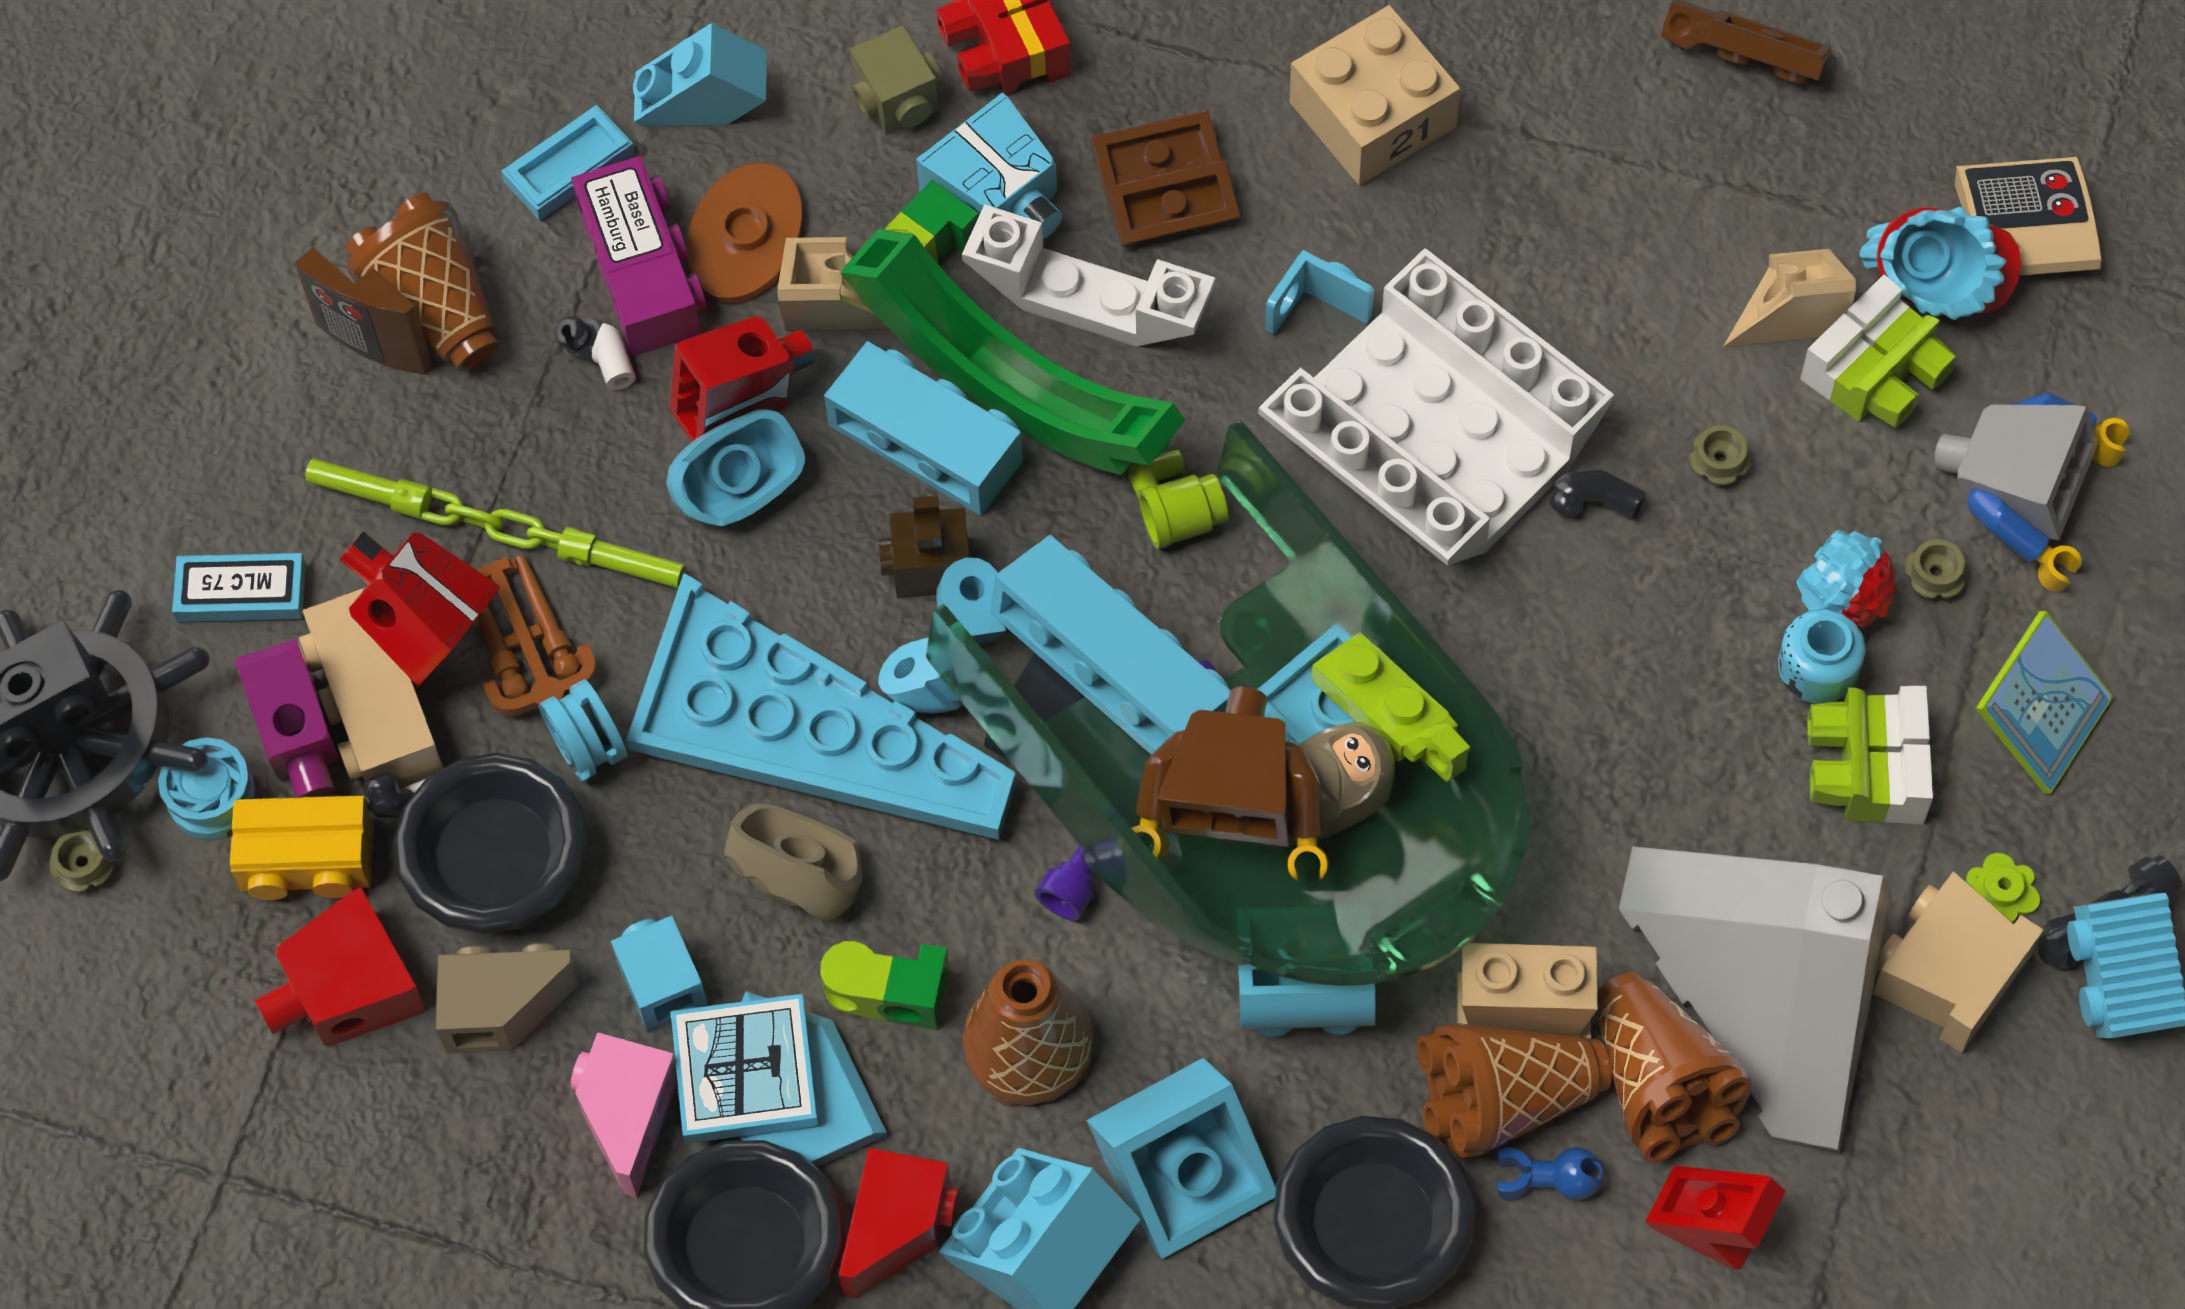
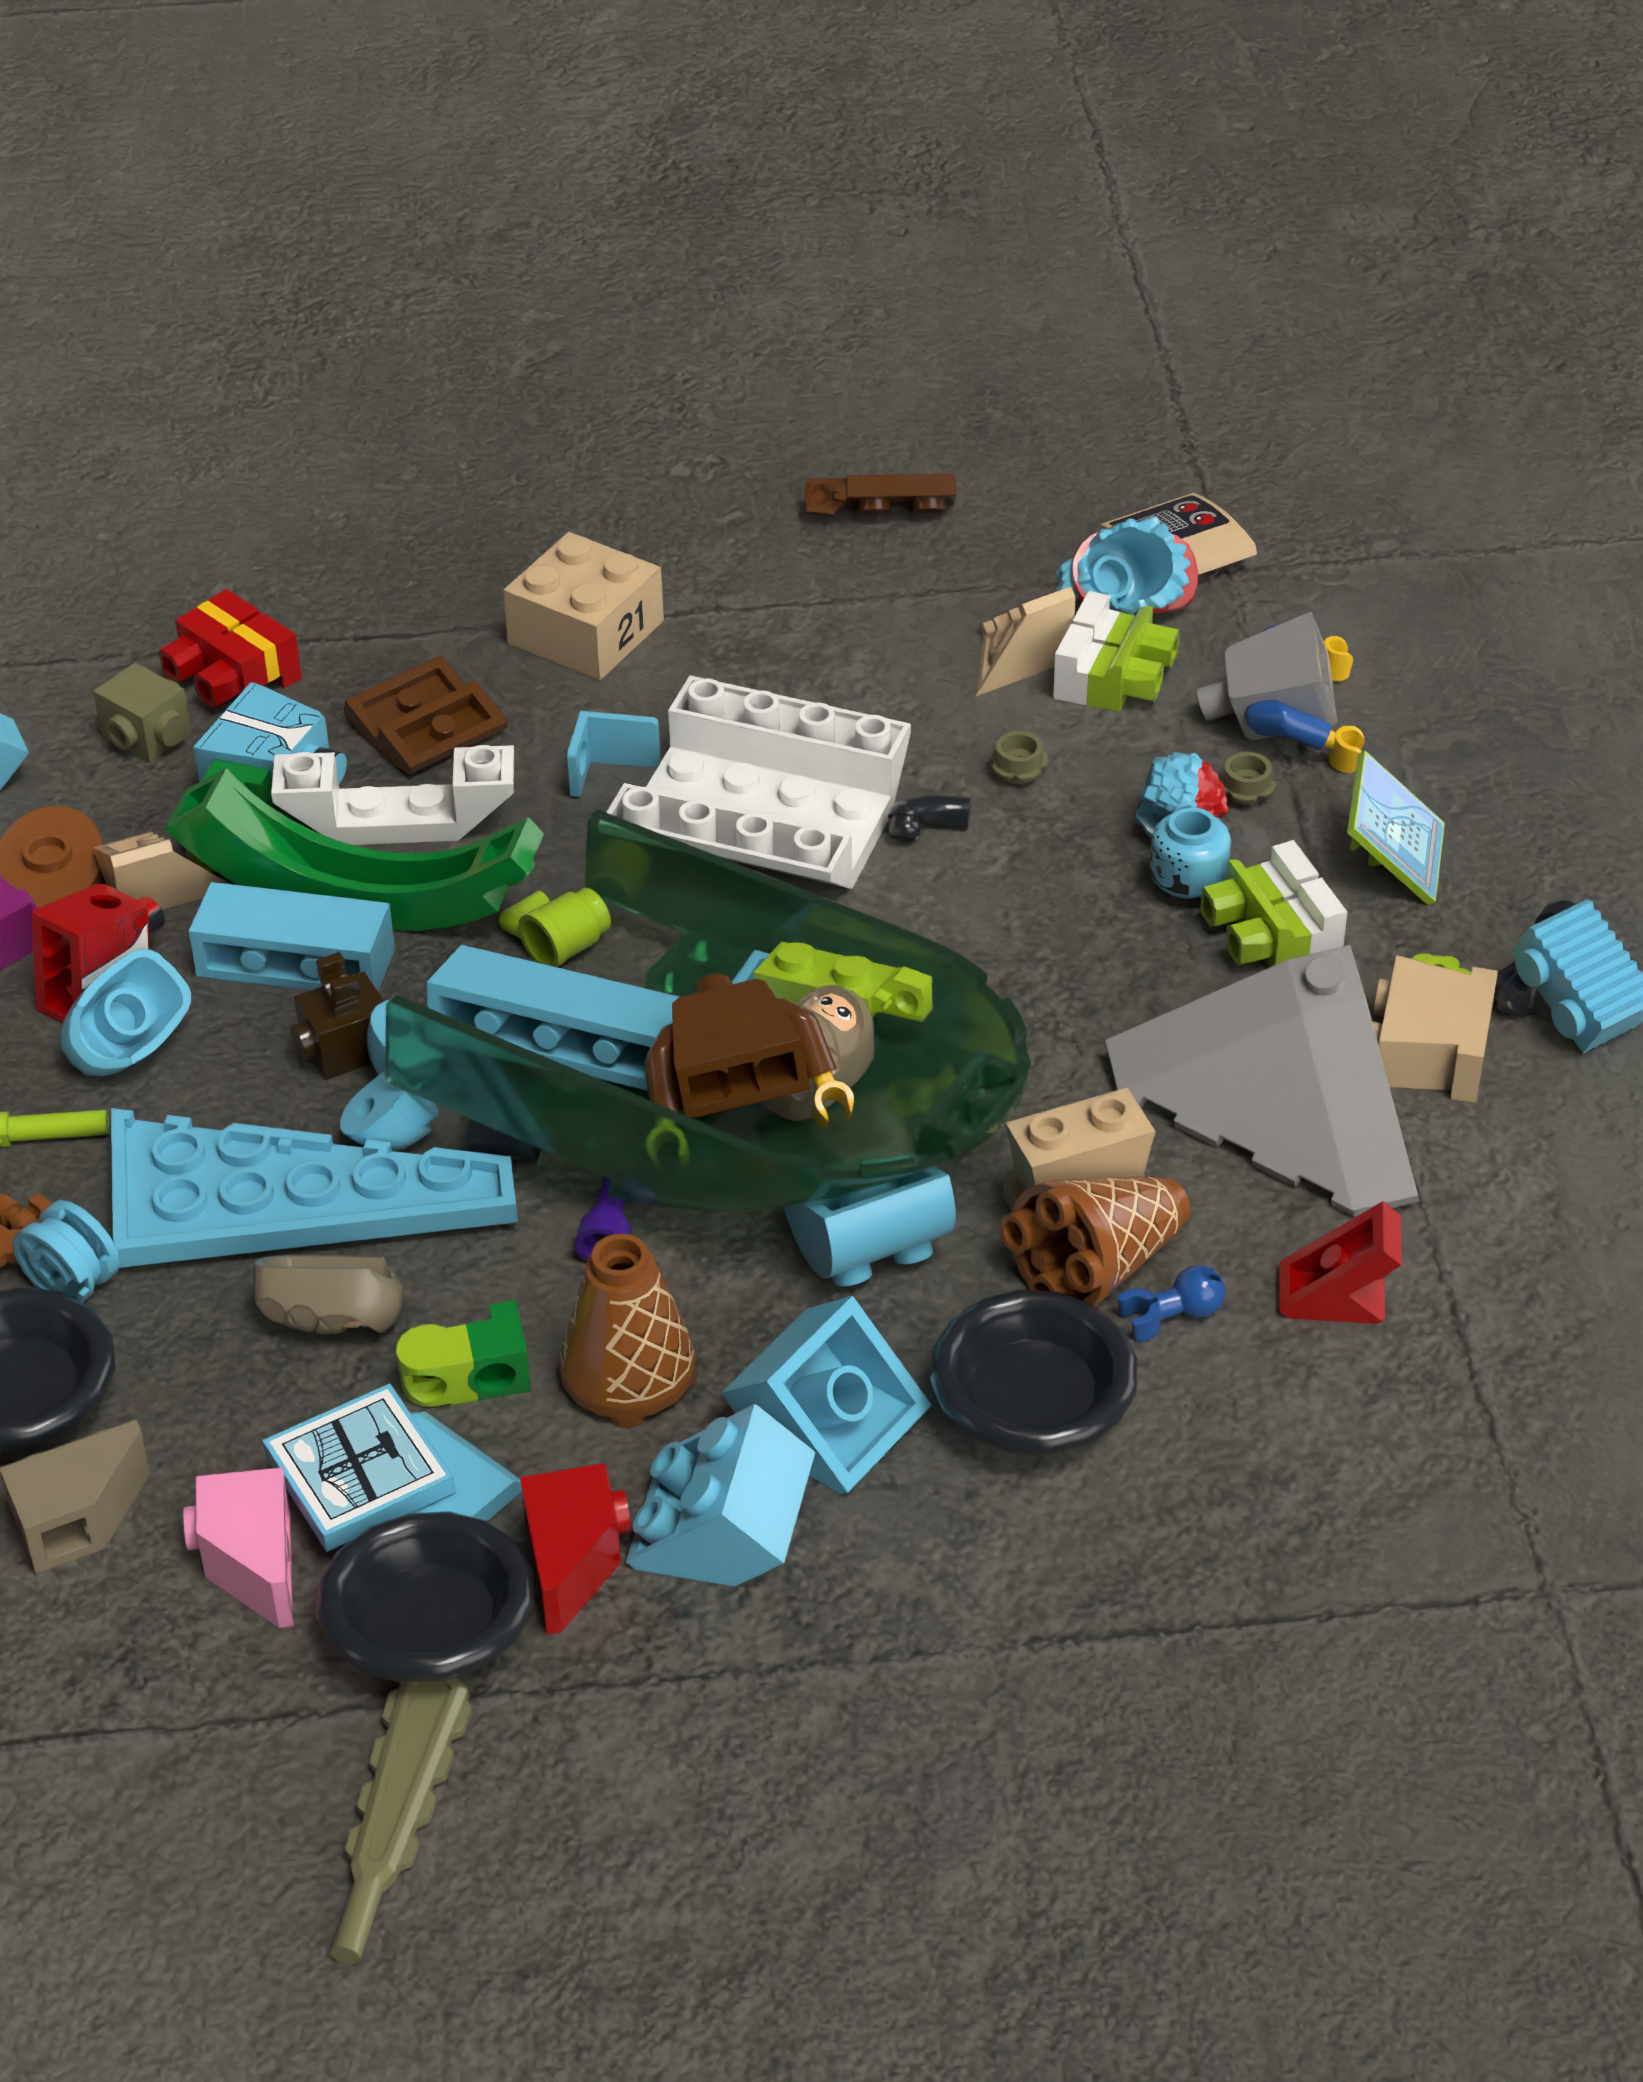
camera: 25 degrees left, 20 degrees down
(658, 971) = (228, 1418): medium azure brick -> none
(1667, 1070) = (1243, 1177): dark orange cone -> none

